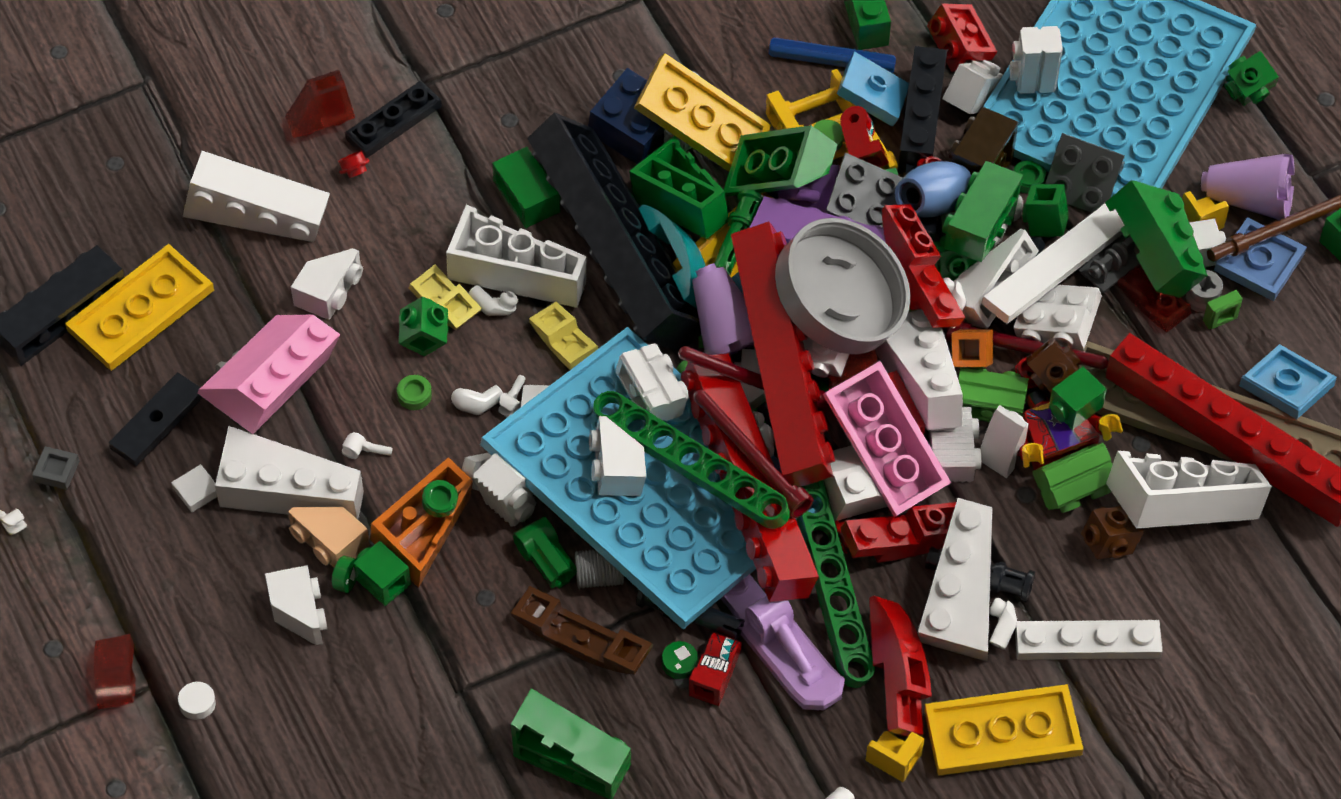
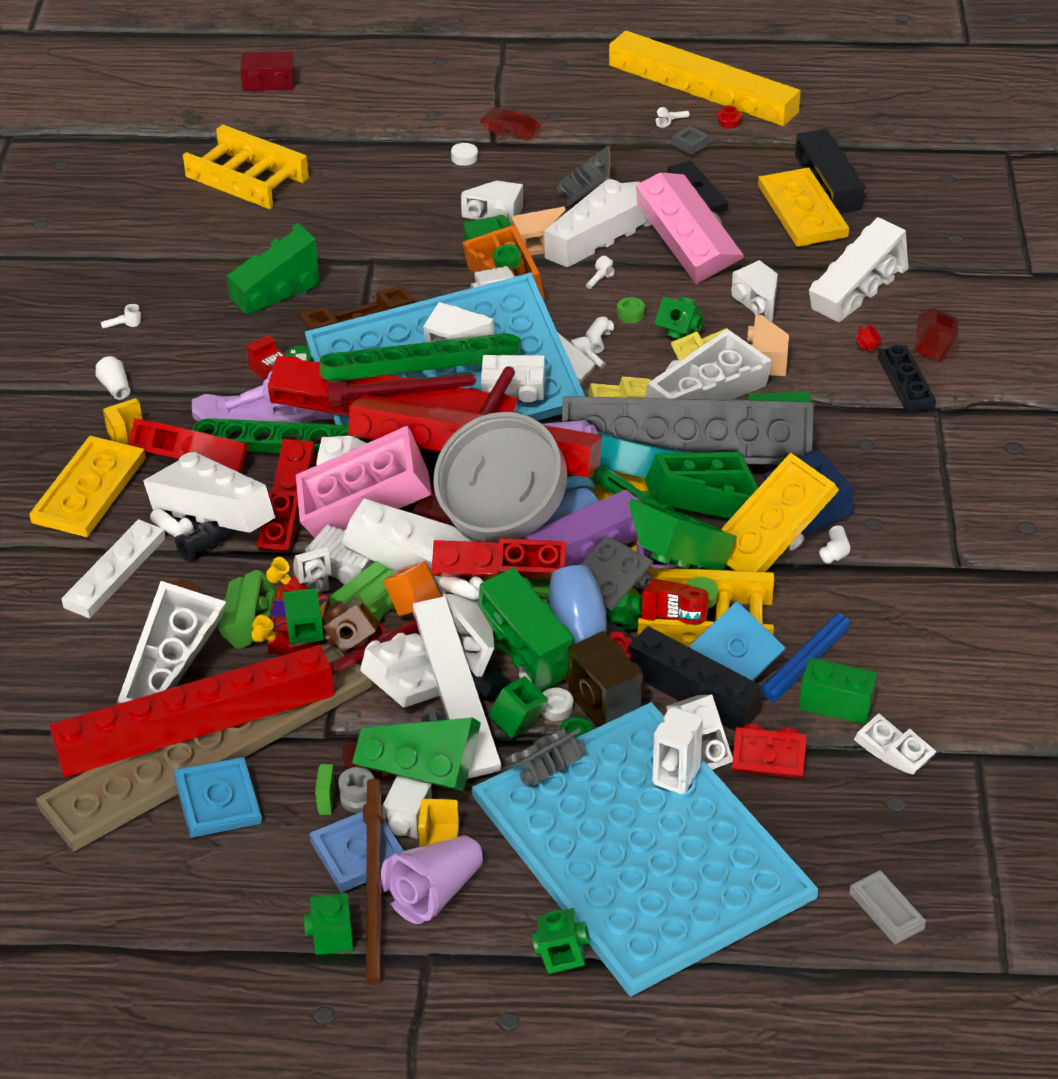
camera: 120 degrees right, 15 degrees down
(199, 527) = (586, 177): none -> dark grey hinge
(420, 238) = (771, 342): none -> light nougat slope

